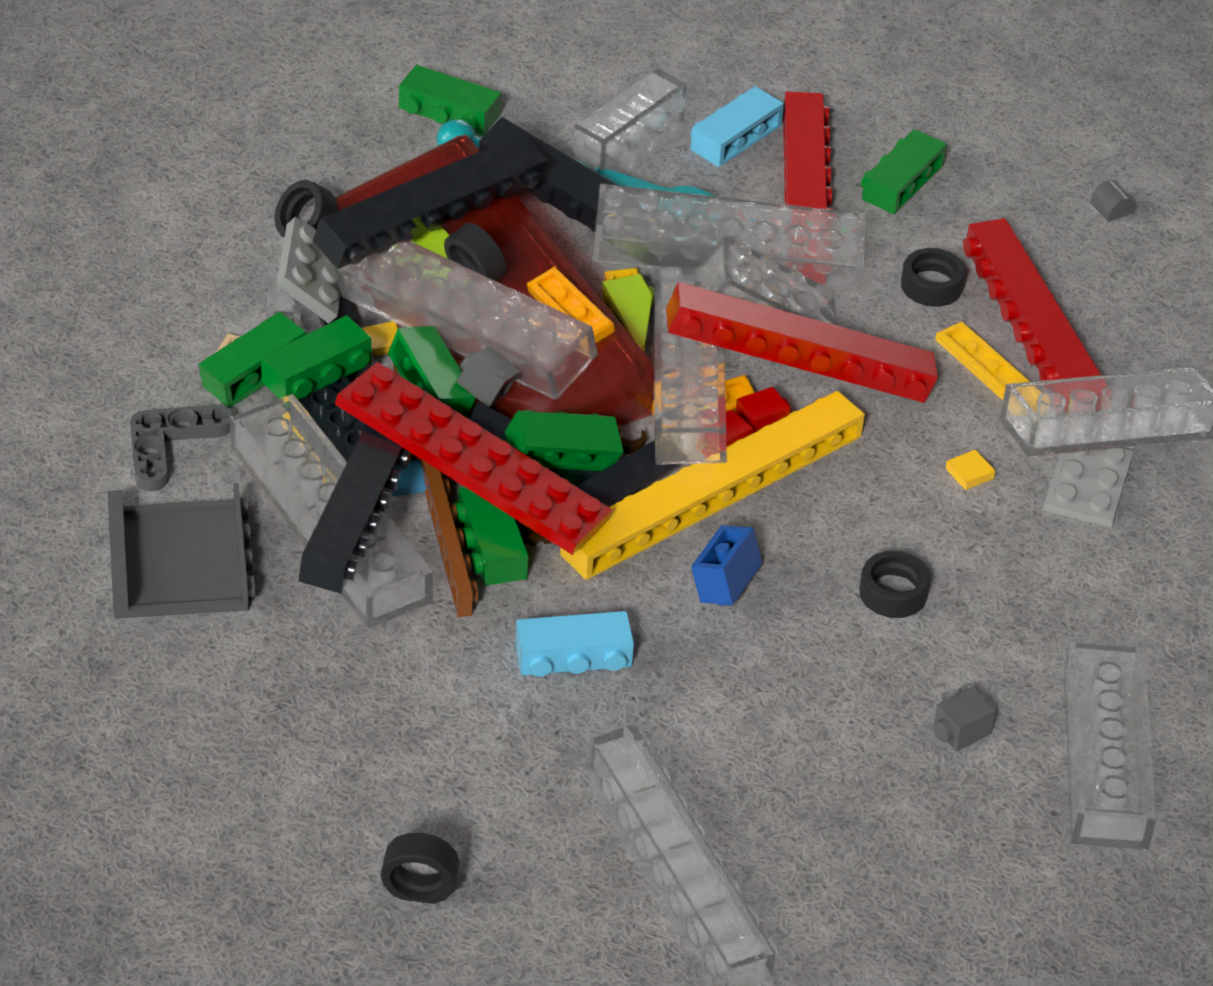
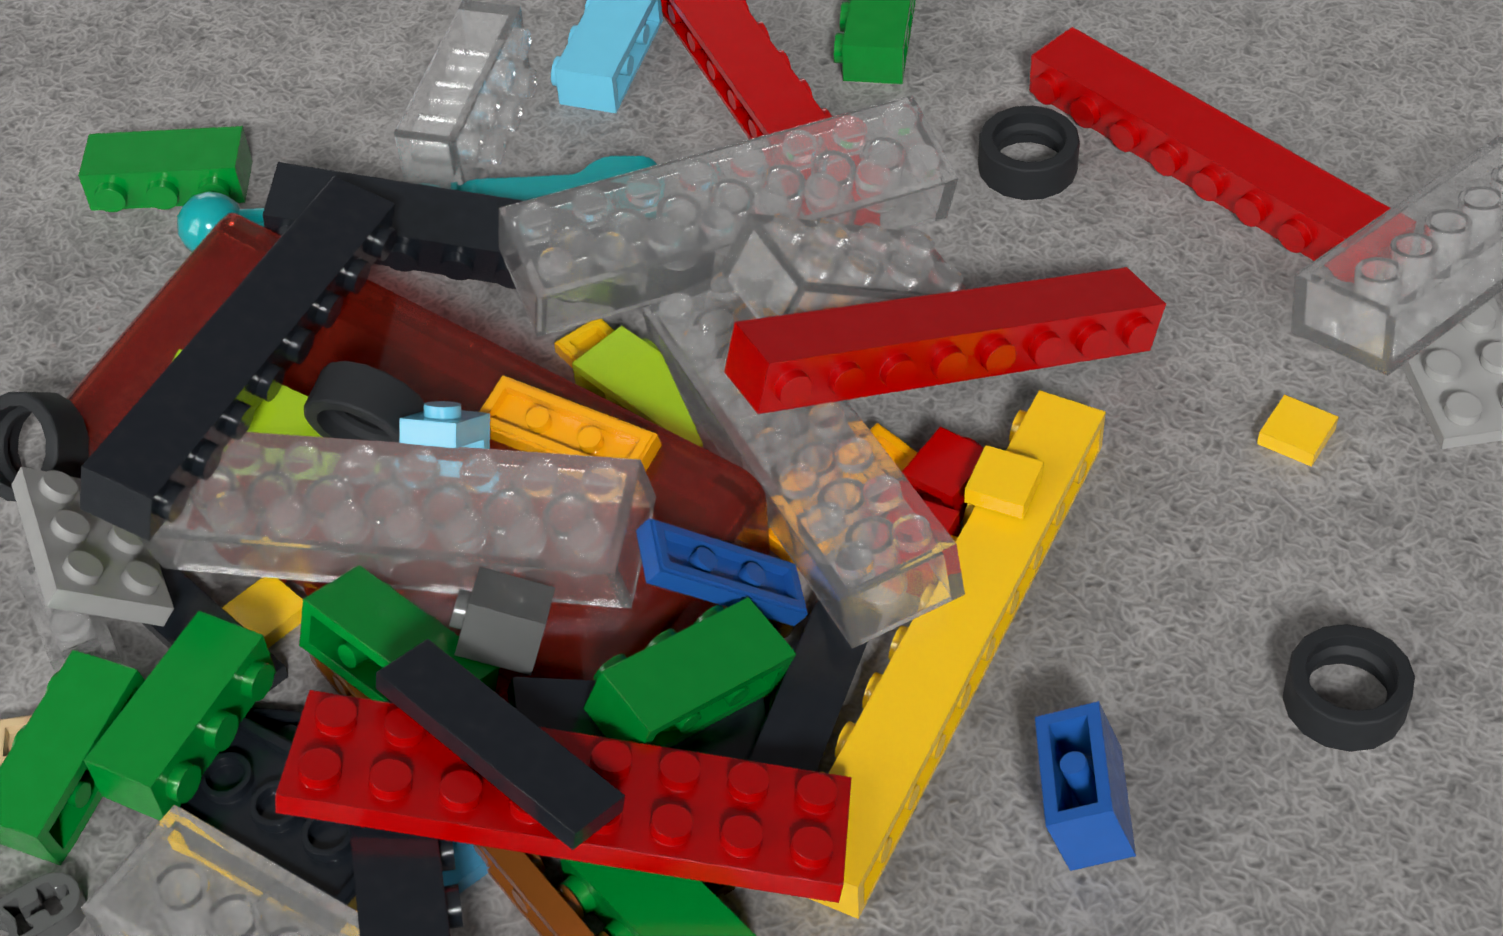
camera: 20 degrees left, 5 degrees up
(450, 416) = (500, 743): none -> black tile
(509, 276) = (446, 426): none -> medium azure bracket
(609, 400) = (719, 571): none -> blue tile
(783, 421) = (1004, 482): none -> yellow tile
(979, 358) = (1198, 254): yellow tile -> none

